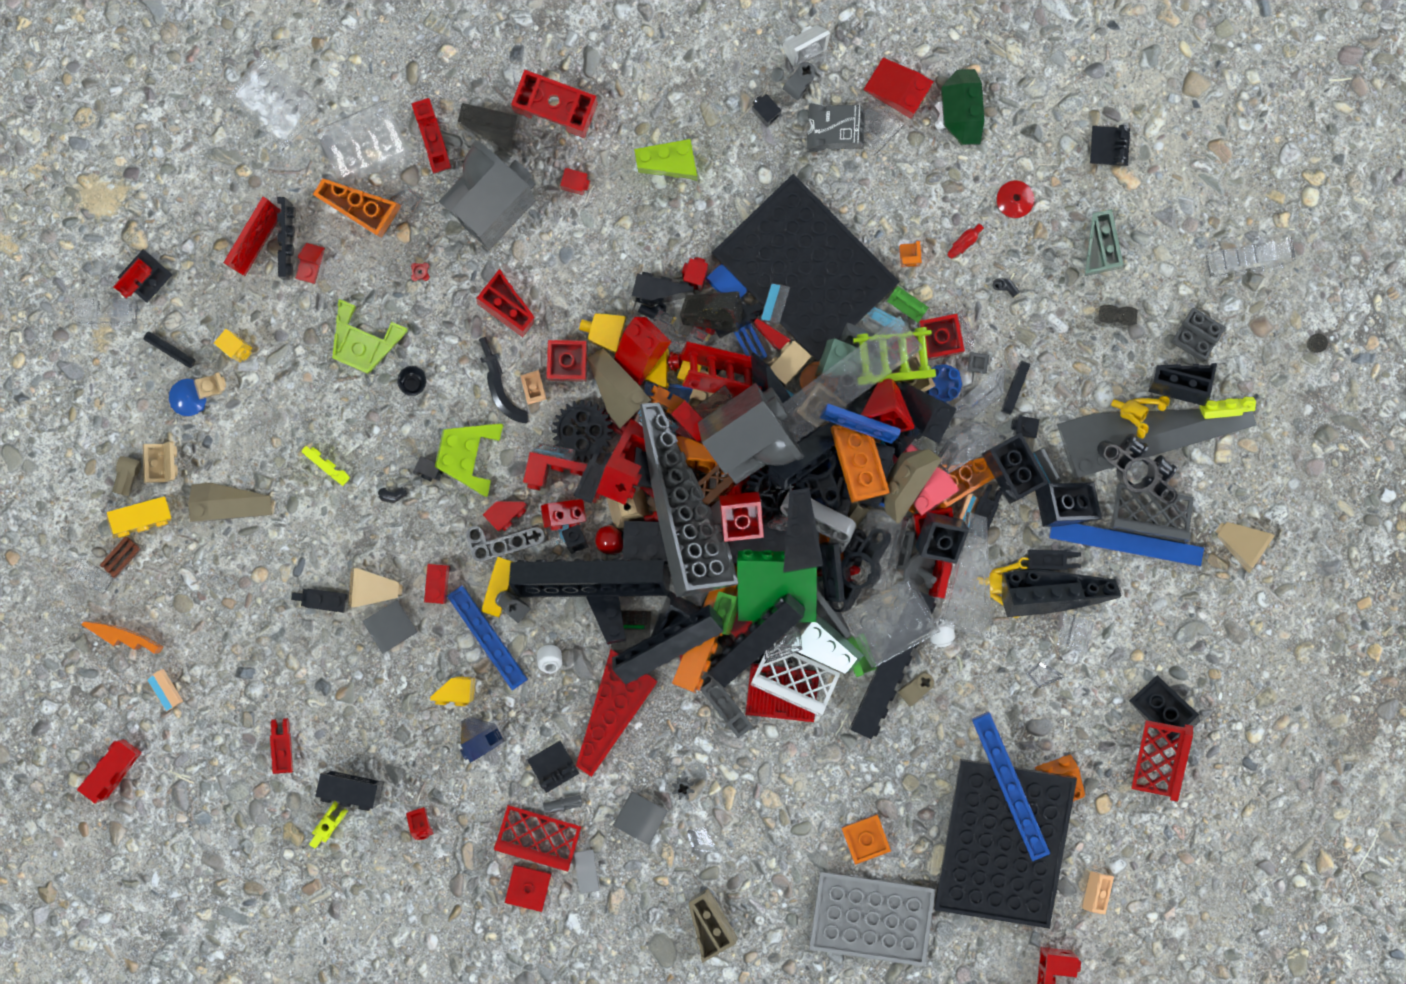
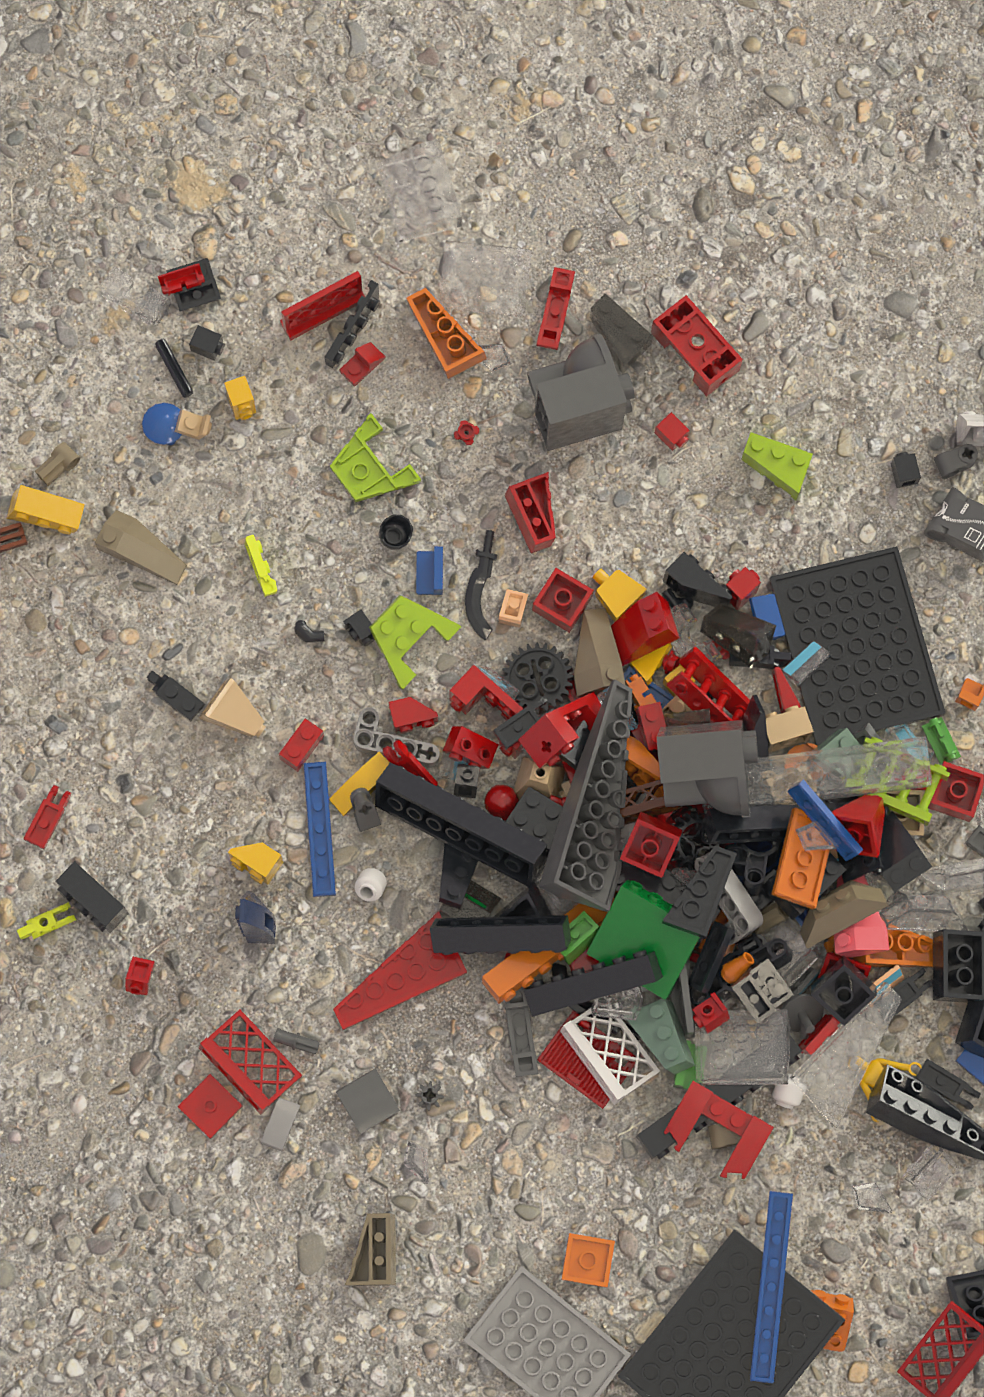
camera: 25 degrees right, 10 degrees down
(159, 462) = (99, 469): tan bracket -> none
(182, 316) = (207, 343): none -> black brick
(389, 626) = (228, 760): dark grey slope -> none
(455, 395) = (429, 572): none -> blue panel
(524, 553) = (407, 761): none -> red hinge
(553, 766) = (309, 997): black hinge -> none
(743, 330) = (758, 671): blue tile -> none
(855, 568) = (736, 968): none -> orange cone
(860, 440) = (815, 838): none -> clear piece
(861, 612) = (712, 1020): none -> red brick
(883, 575) = (762, 989): none -> slope
(884, 678) = (703, 1102): none -> red wedge
(947, 383) = (937, 841): blue dish -> none

